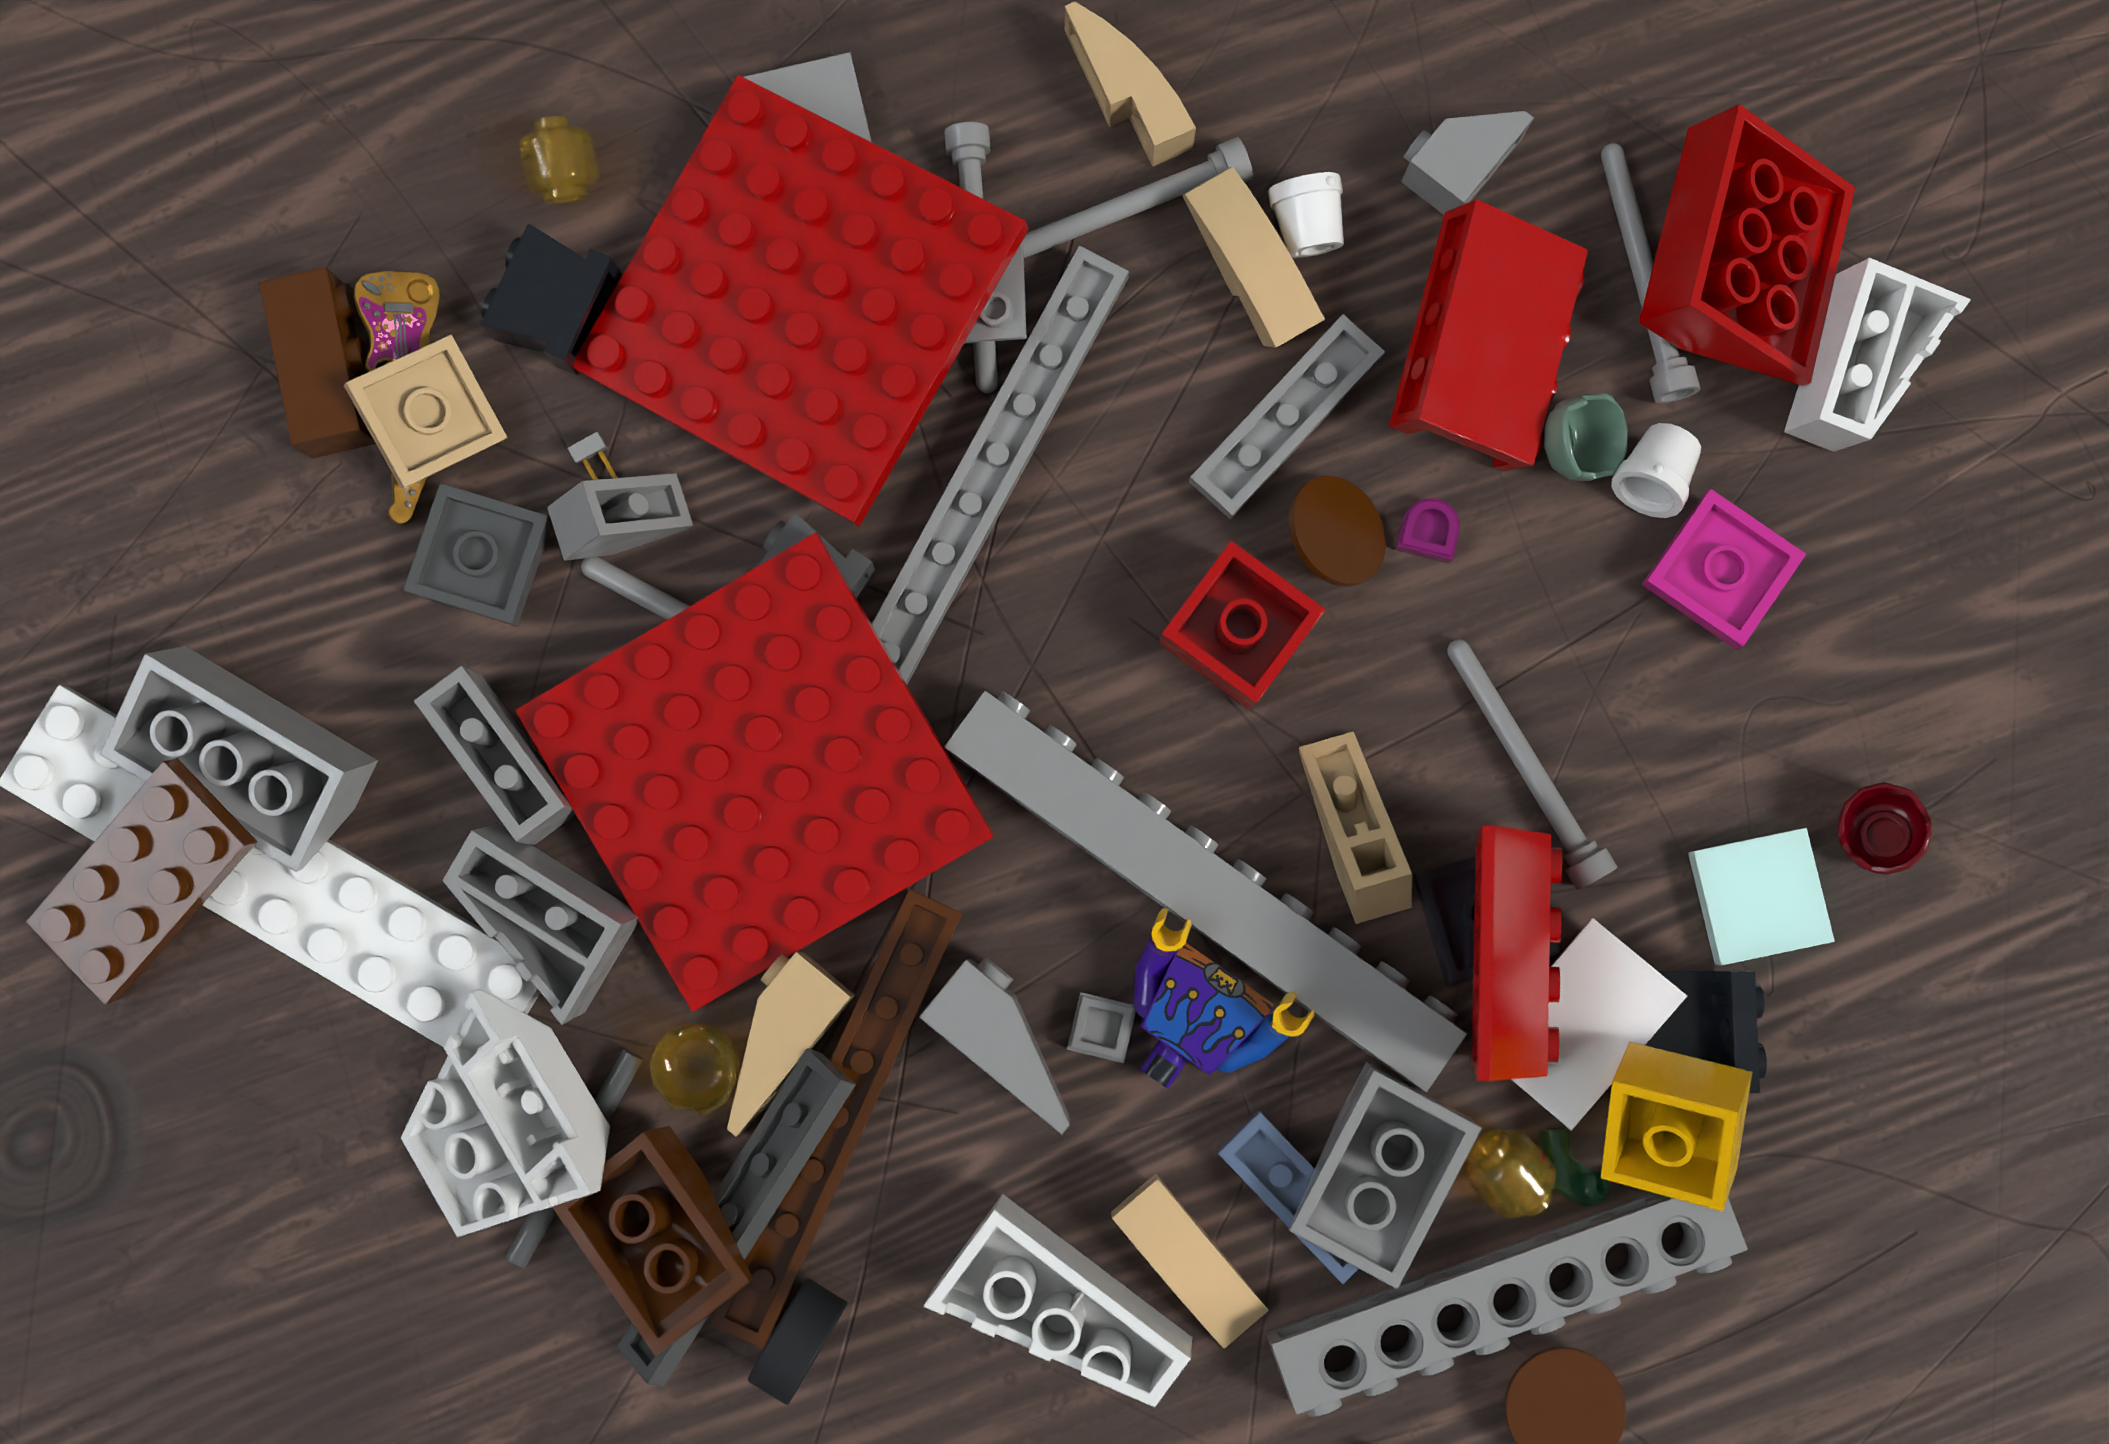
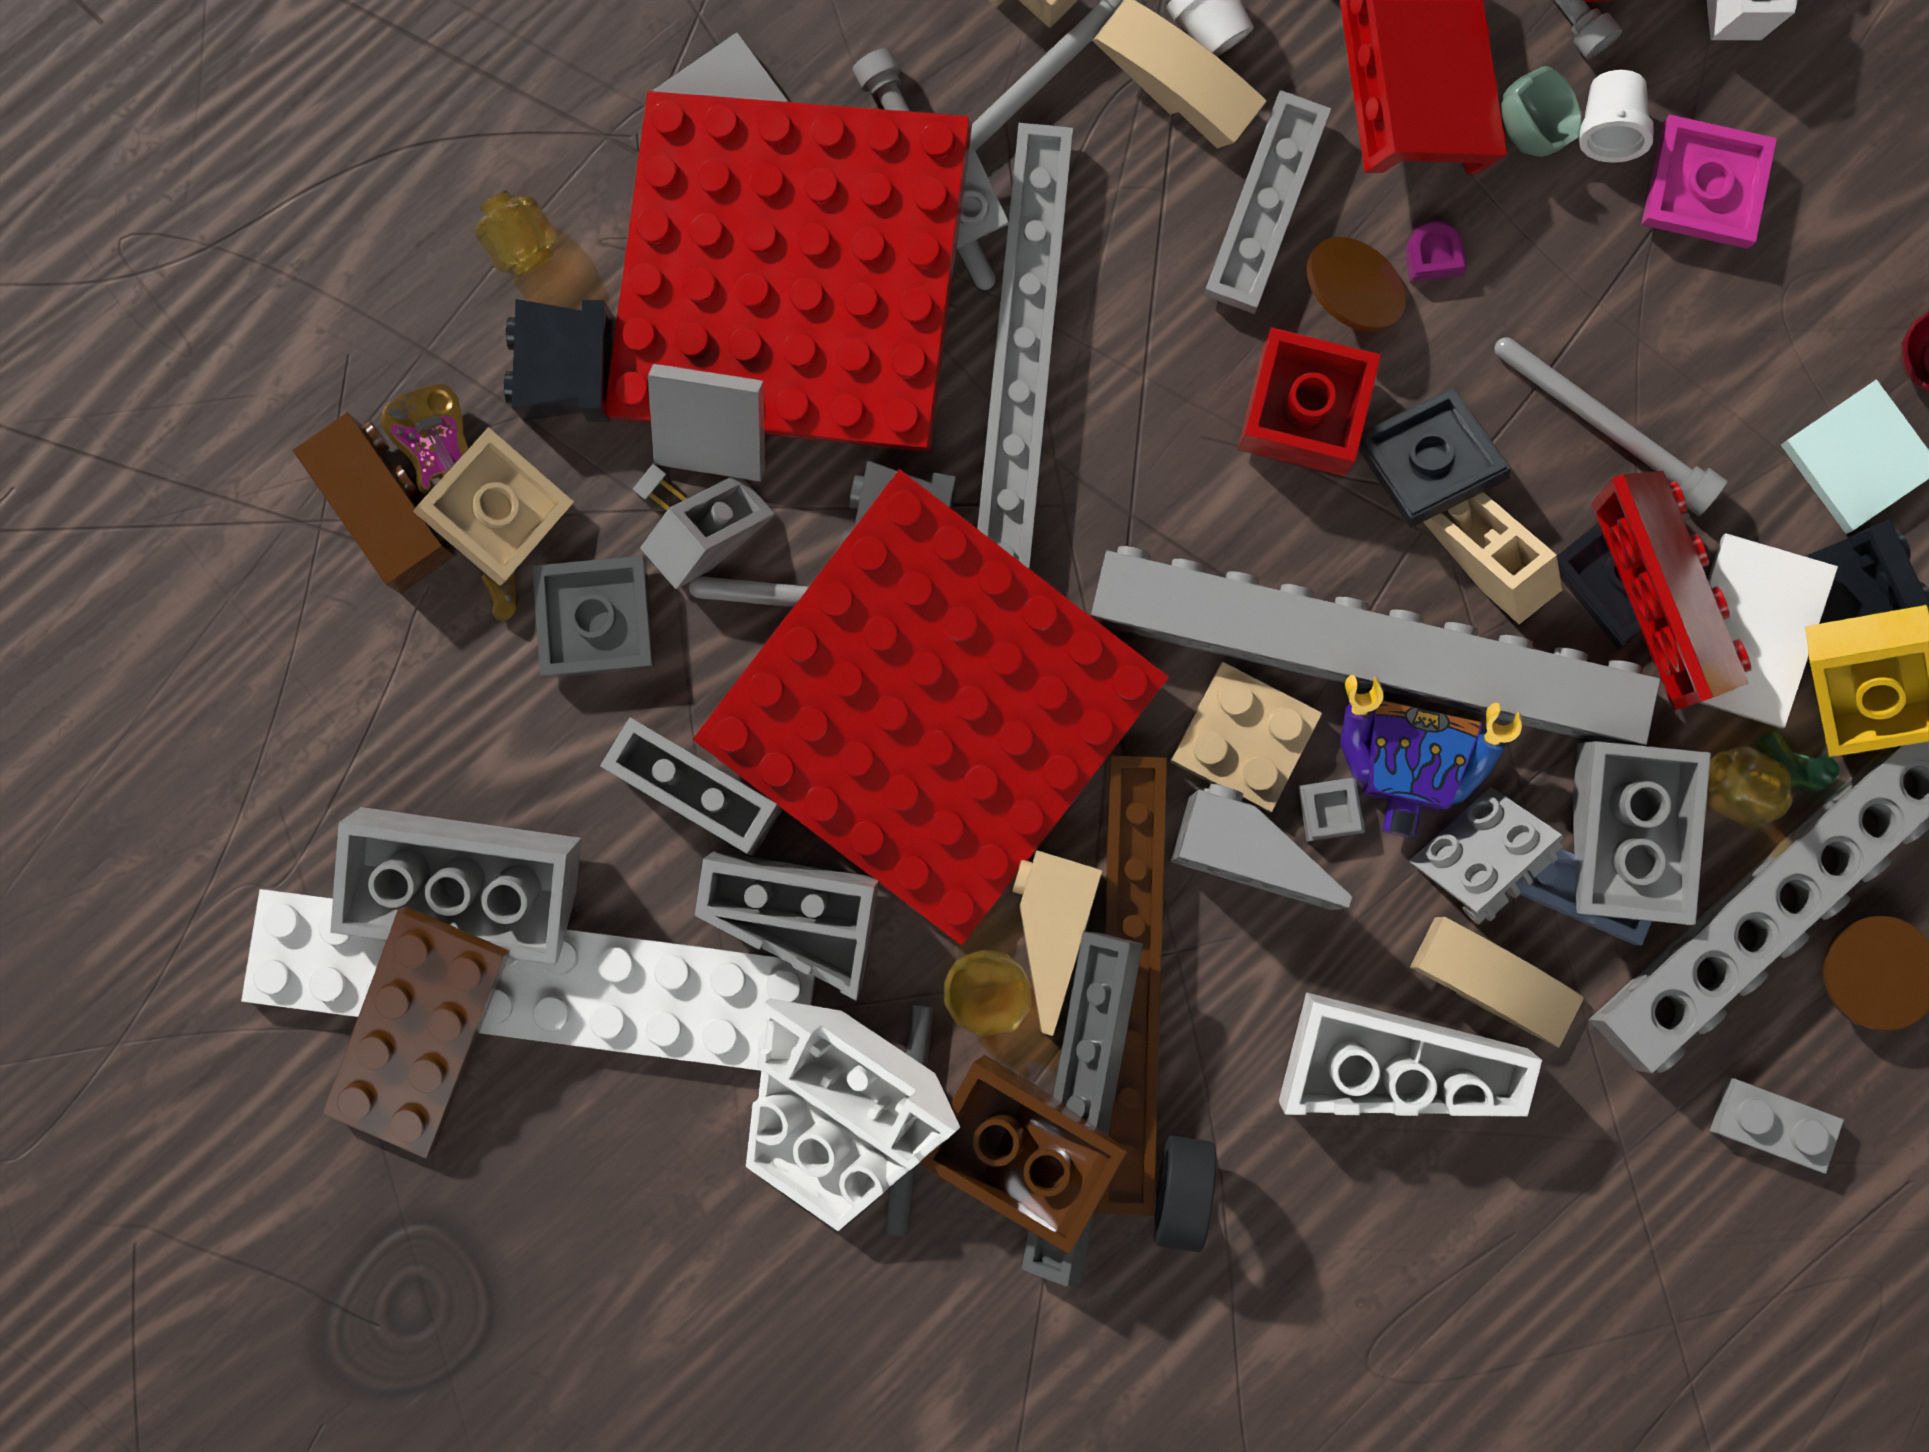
camera: 20 degrees left, 0 degrees up
(658, 413) = (707, 422): none -> light grey tile
(1049, 924) = (1246, 737): none -> tan plate
(1229, 1134) = (1487, 853): none -> light grey hinge
(1340, 728) = (1432, 457): none -> black tile

